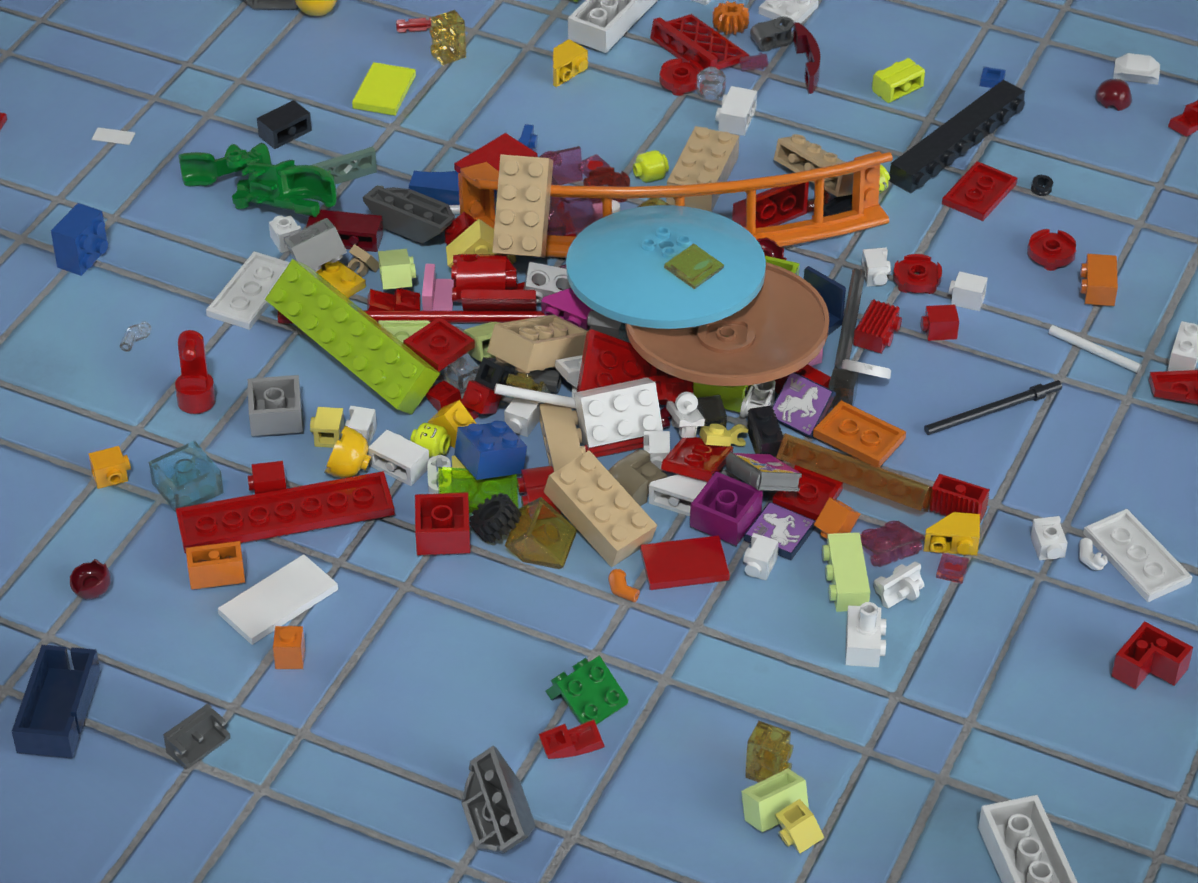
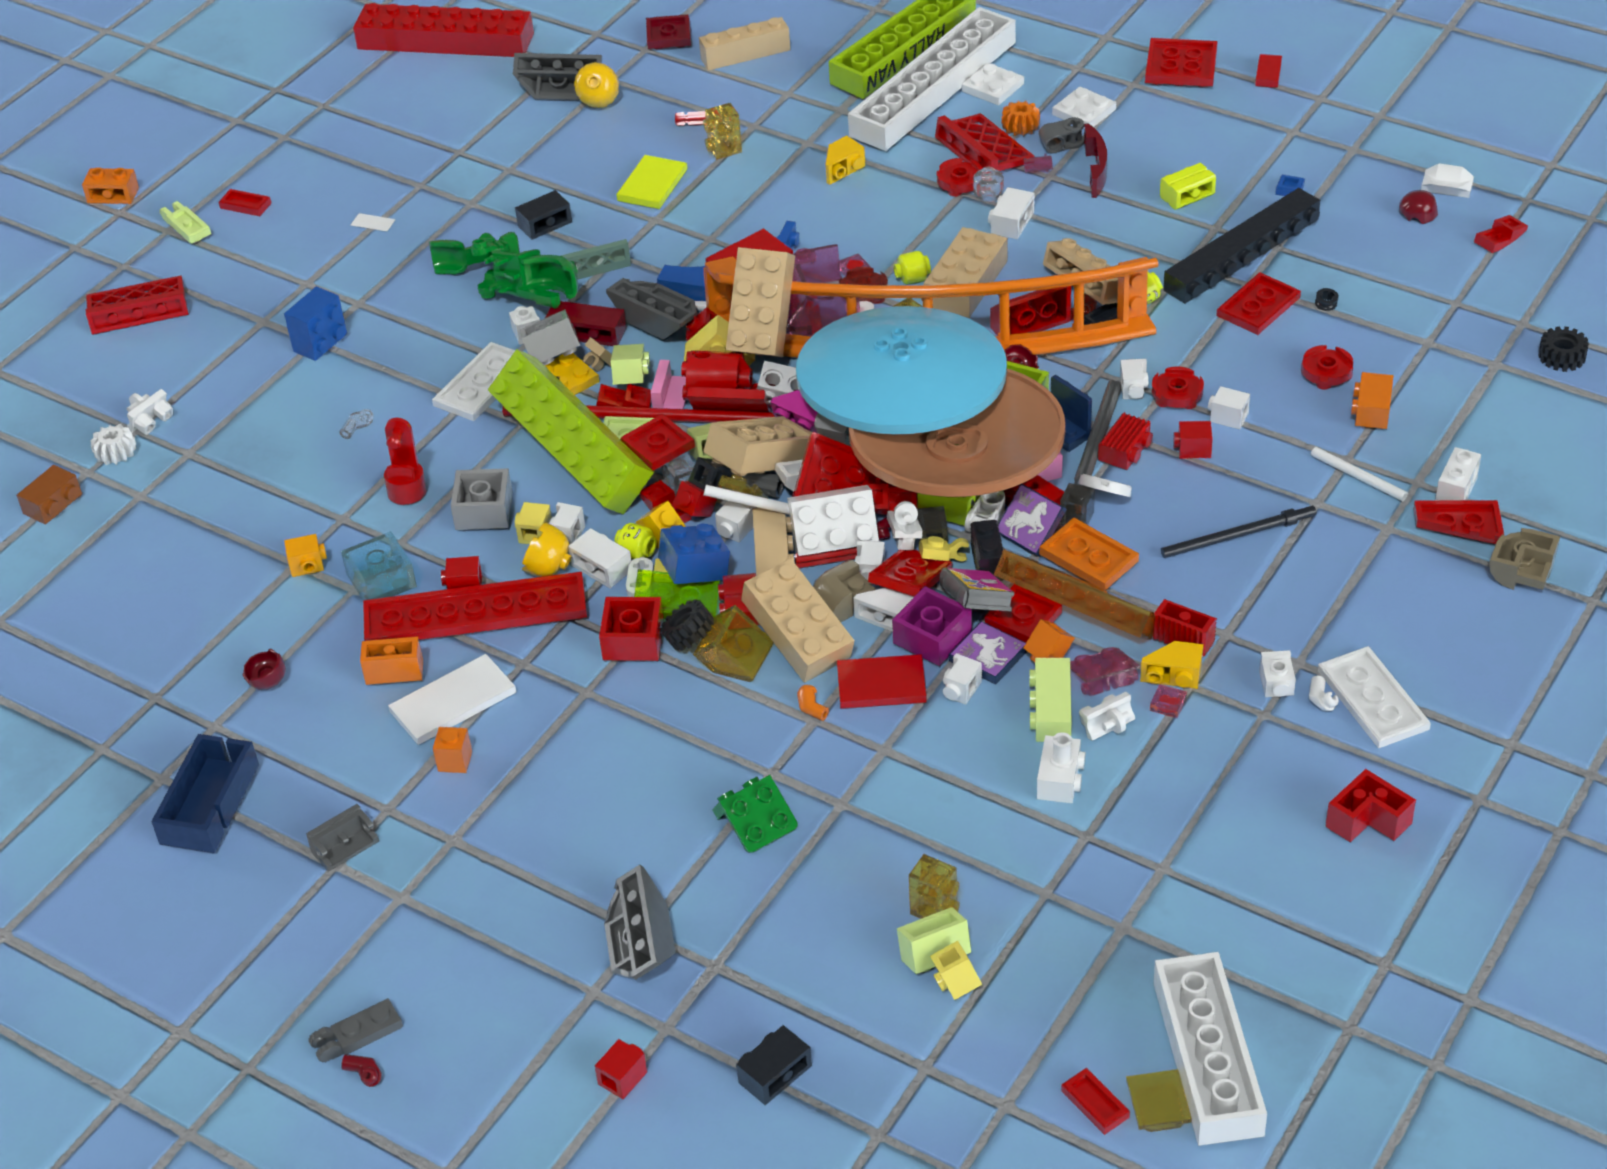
camera: 10 degrees right, 0 degrees up
(576, 741) = (722, 866): red slope -> none
(694, 266) = (925, 369): clear yellow piece -> none

